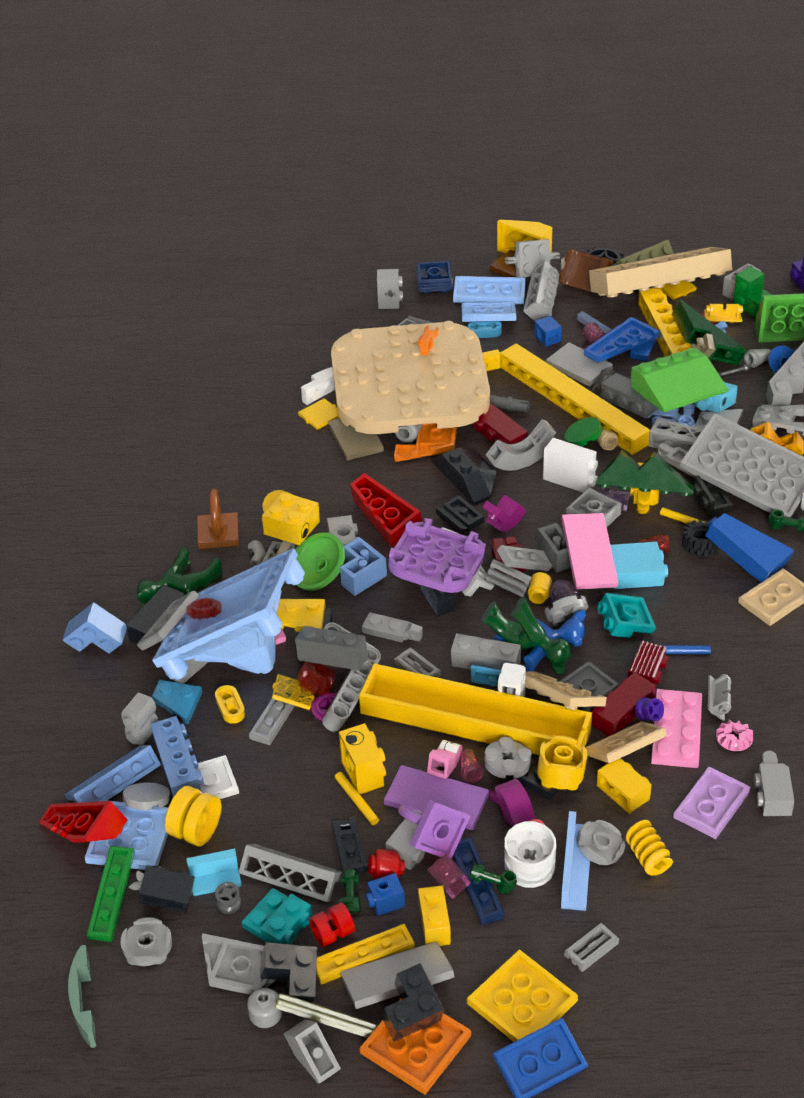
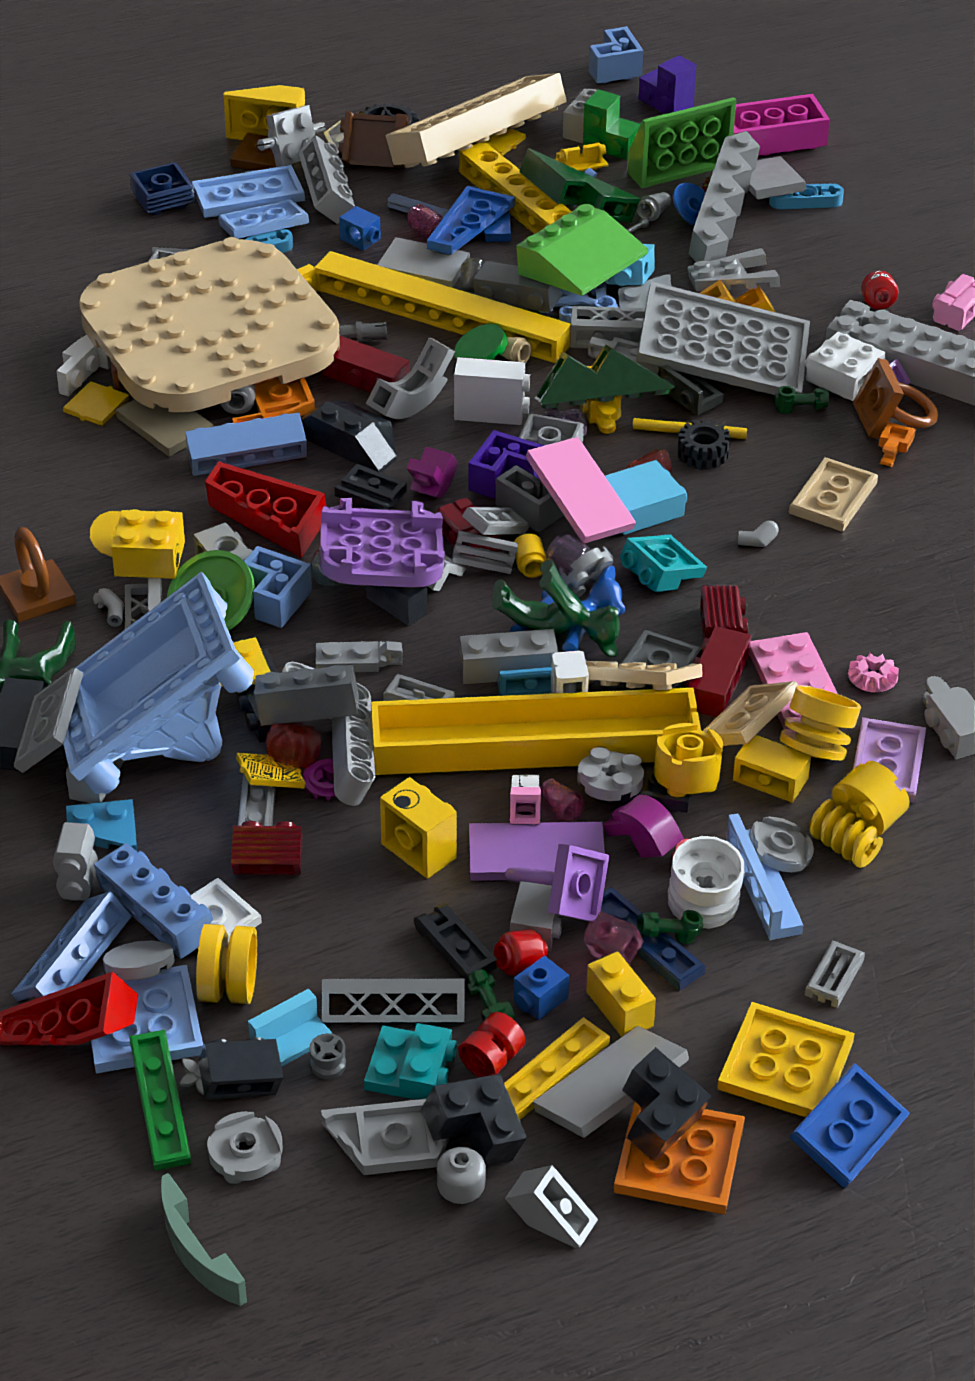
camera: 25 degrees left, 0 degrees up
(204, 608) = (102, 687): clear red gear -> none
(230, 704) = (187, 810): yellow plate -> none
(262, 745) = (267, 849): none -> dark red brick
(324, 1015) = (537, 1157): axle -> none
(356, 798) = (430, 882): yellow bar -> none
(388, 289) = (109, 215): light grey brick -> none
(395, 464) = (246, 443): none -> medium blue brick
(426, 341) = (217, 267): orange plate -> none
(547, 513) = (496, 457): none -> dark purple brick
(649, 709) = (758, 666): dark purple wheel -> none
(661, 249) = (450, 97): olive plate -> none
(667, 762) = (820, 720): none -> yellow wheel
(676, 828) = (871, 796): none -> yellow brick
(688, 649) = (763, 584): blue bar -> none
(705, 344) = (586, 196): dark tan tile -> none
(707, 614) = (759, 537): none -> light grey arm
(718, 695) = (836, 634): light grey hinge -> none
(748, 547) = (772, 439): blue slope -> none
(784, 245) = (617, 57): none -> medium blue brick

